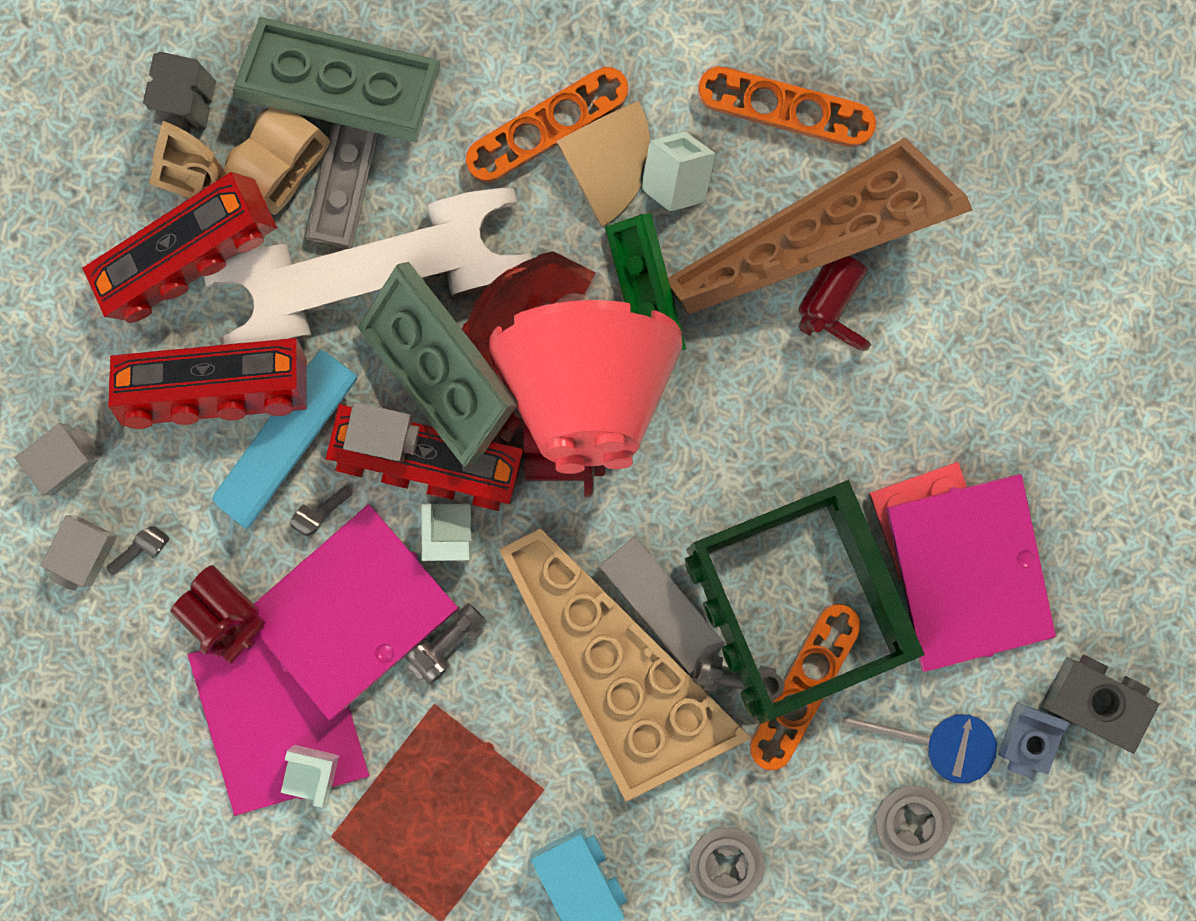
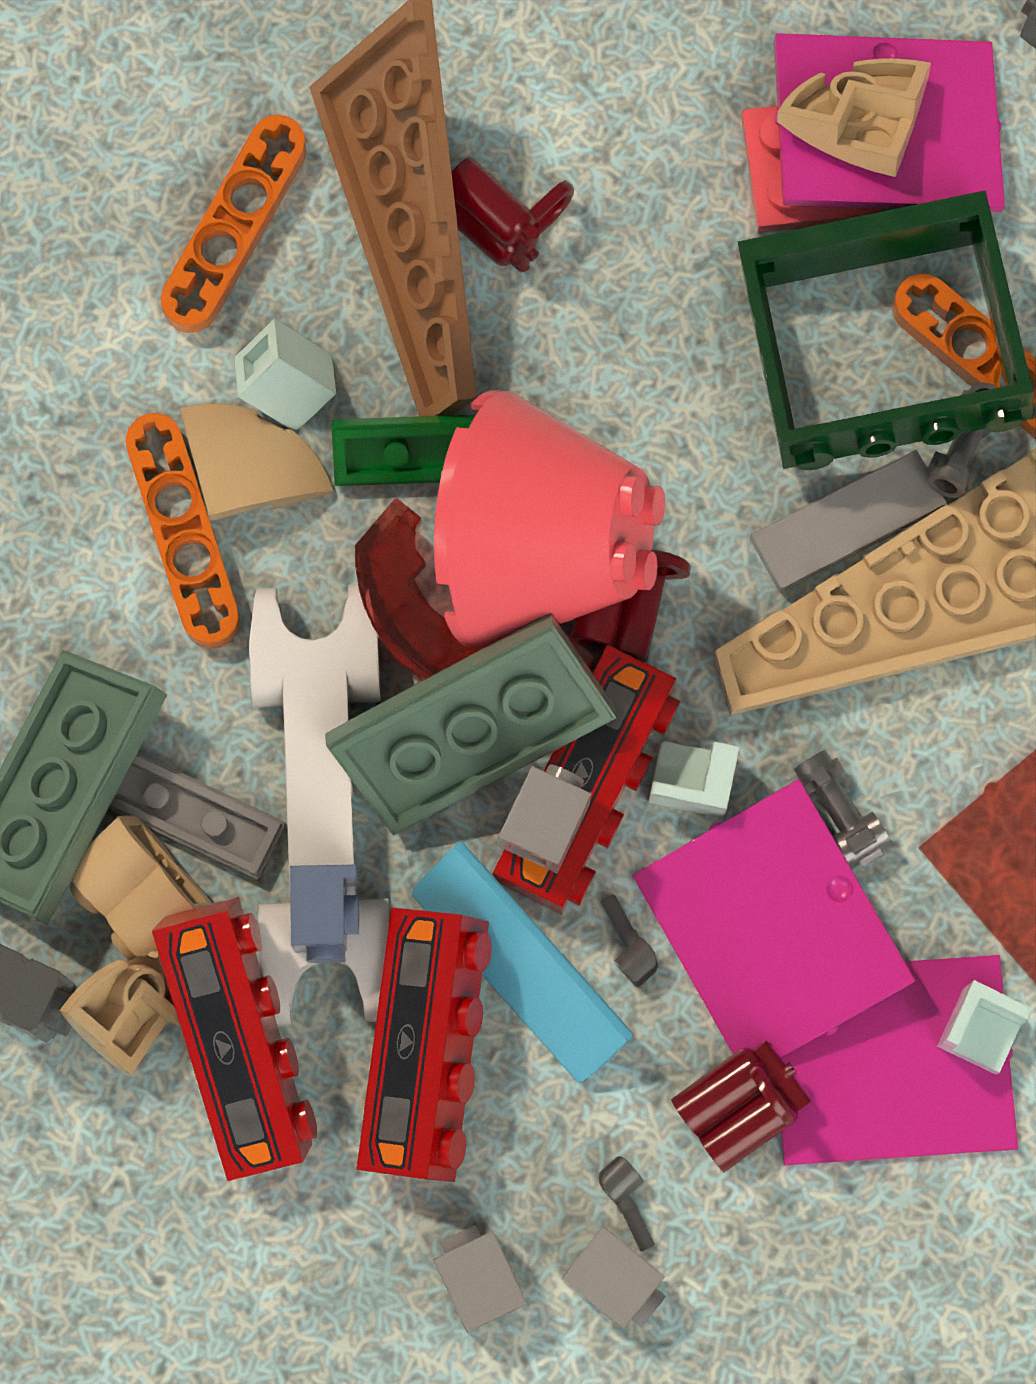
camera: 80 degrees left, 10 degrees down
(279, 289) = (323, 911): none -> sand blue brick
(969, 551) = (861, 114): none -> tan brick

